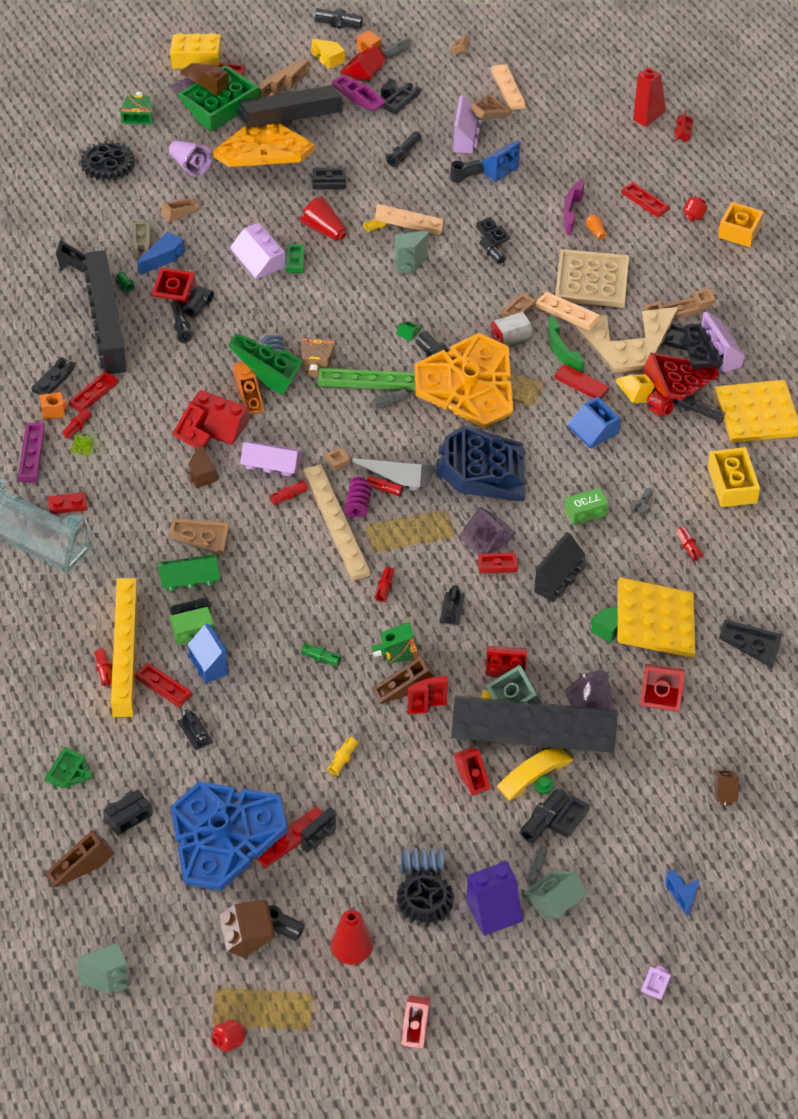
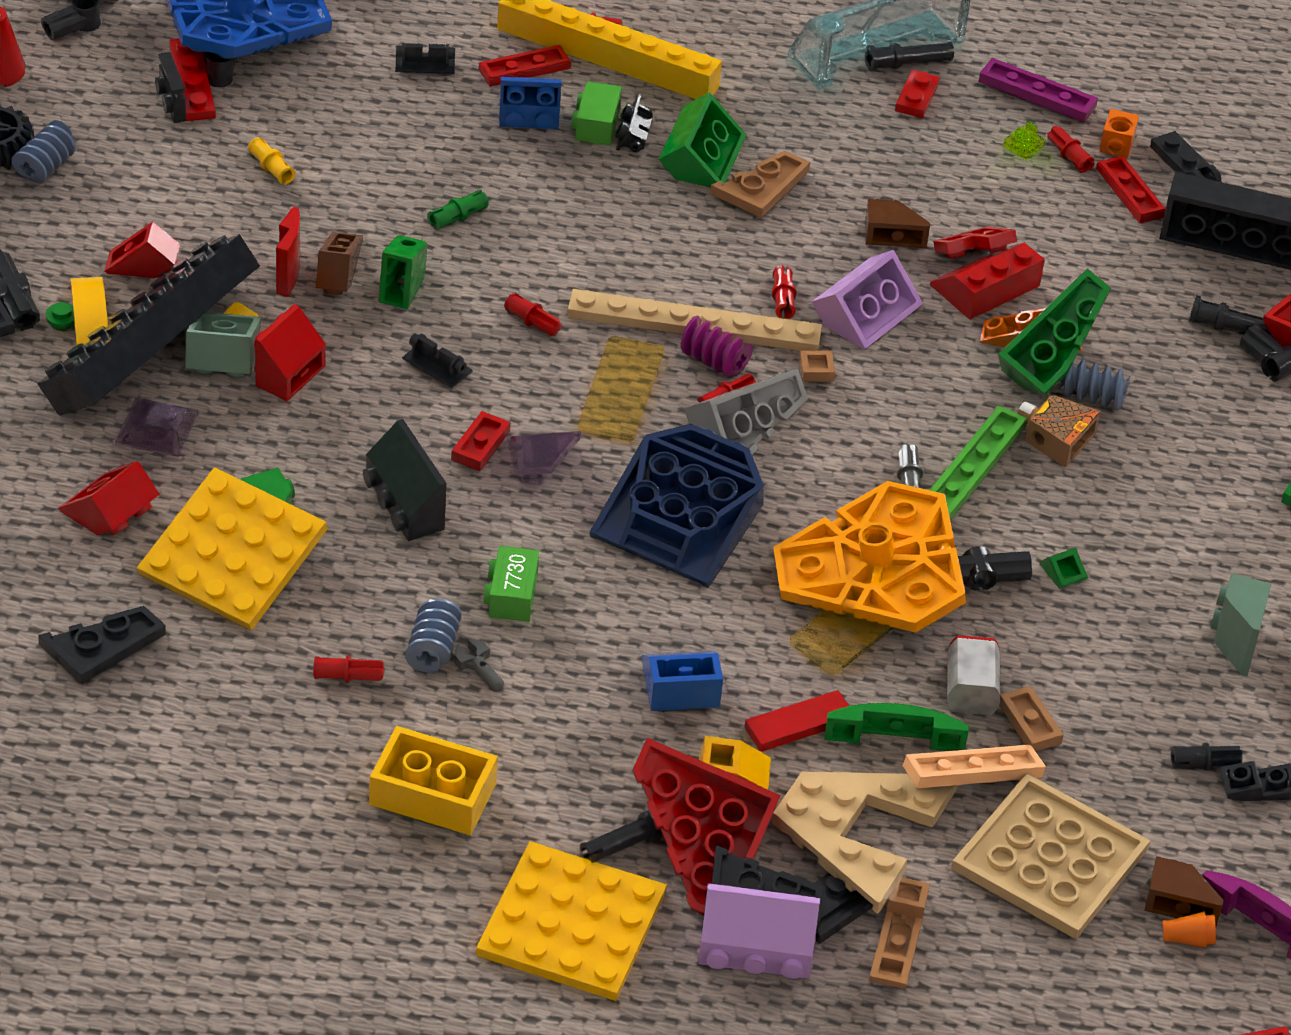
camera: 115 degrees right, 5 degrees down
(580, 234) = (1180, 891): none -> reddish brown slope
(644, 517) = (433, 635): none -> sand blue piece

